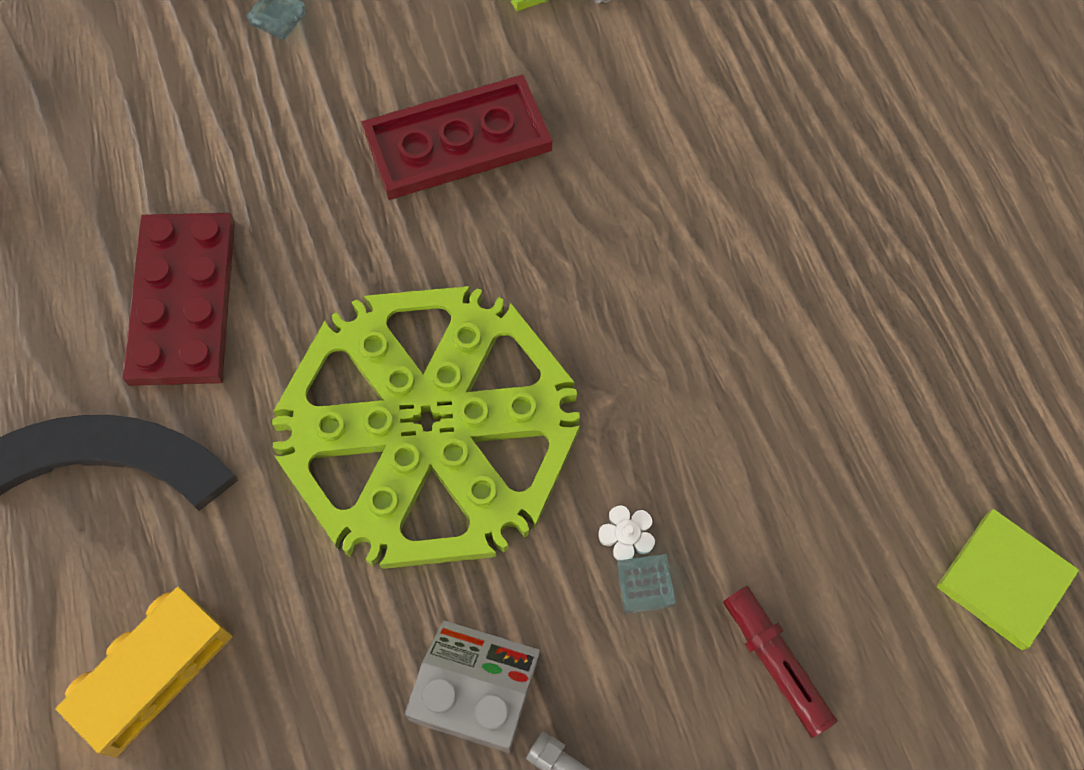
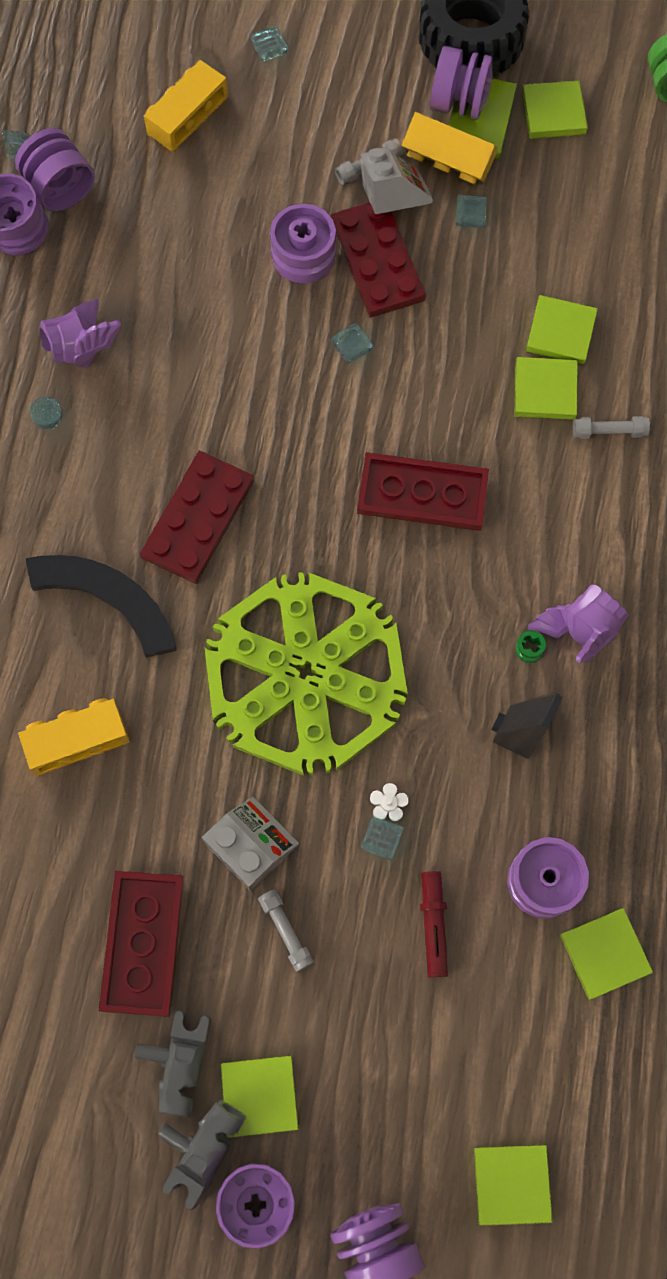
camera: 30 degrees right, 5 degrees up
(694, 264) = (528, 655): none -> green bush
(745, 183) = (590, 620): none -> medium lavender helmet
(757, 332) = (526, 723): none -> black wedge
(888, 520) = (566, 869): none -> medium lavender wheel

